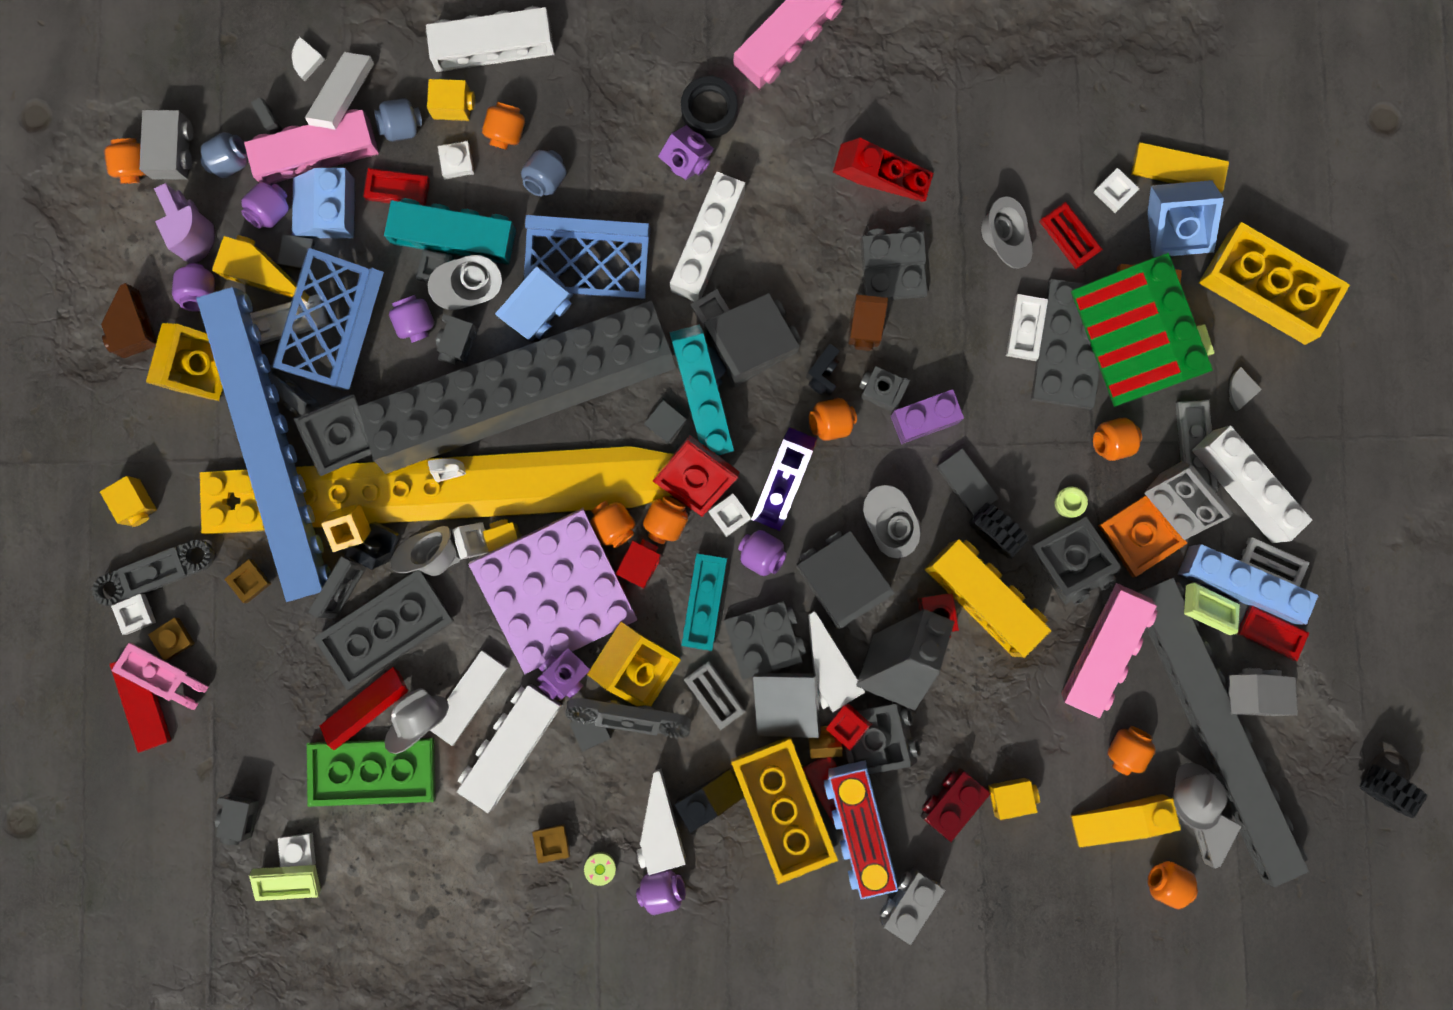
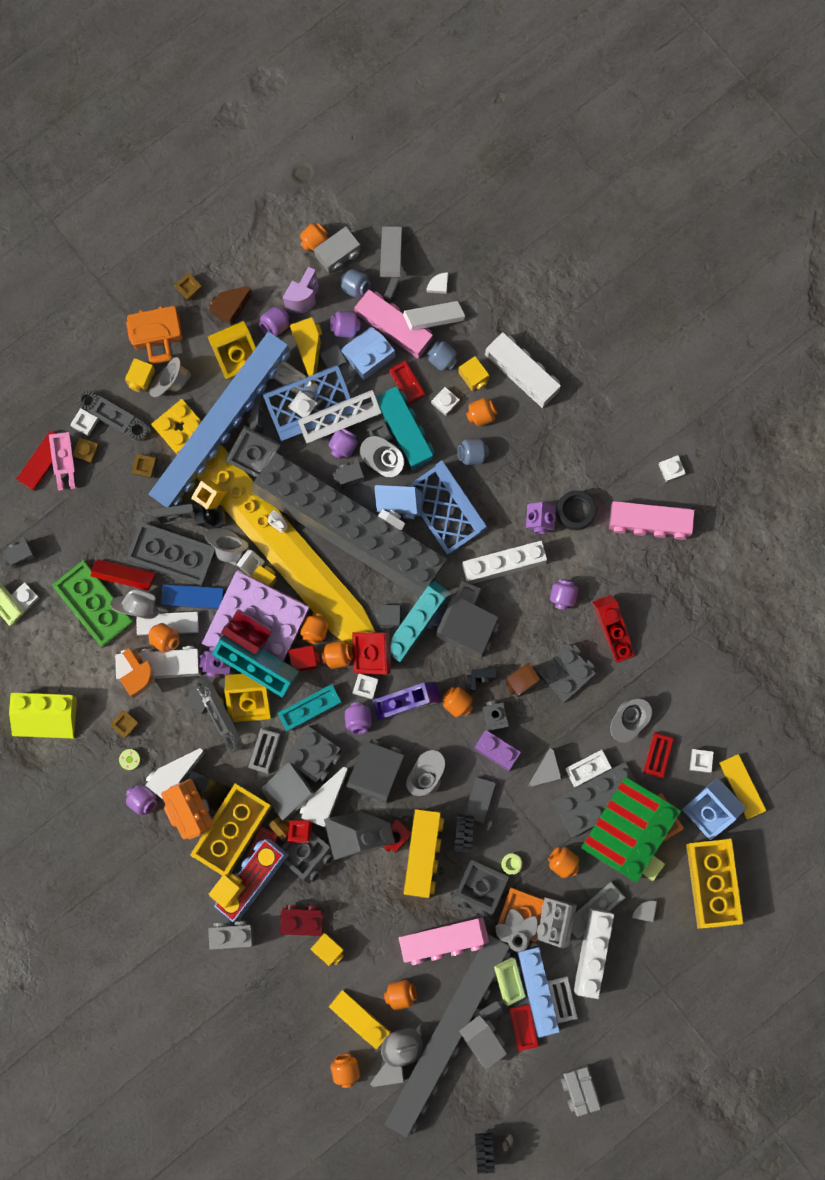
camera: 55 degrees right, 5 degrees down
(64, 359) = (188, 286): none -> pearl gold plate
(85, 440) = (155, 329): none -> orange piece
(163, 466) = (171, 378): none -> light grey piece
(219, 82) = (391, 252): none -> light grey tile
(324, 328) = (302, 404): none -> white plate
(391, 272) = (359, 414): none -> white fence
(457, 643) = (191, 596): none -> blue tile
(462, 938) = (42, 715): none -> neon yellow slope
(482, 716) = (163, 637): none -> orange head
(510, 784) = (140, 677): none -> orange brick
(551, 326) = (392, 518): none -> white plate
(555, 608) = (247, 632): none -> dark red bracket
(601, 626) = (260, 667): none -> teal brick
(720, 847) = (186, 809): none -> orange piece
(799, 197) = (564, 594): none -> medium lavender head
(857, 871) = (227, 890): none -> yellow brick
(993, 376) = (547, 771): none -> light grey slope
(1154, 554) = (515, 927): none -> light grey plate
(1231, 658) = (492, 1012): none -> dark grey tile
(1399, 621) = (581, 1091): none -> light grey brick

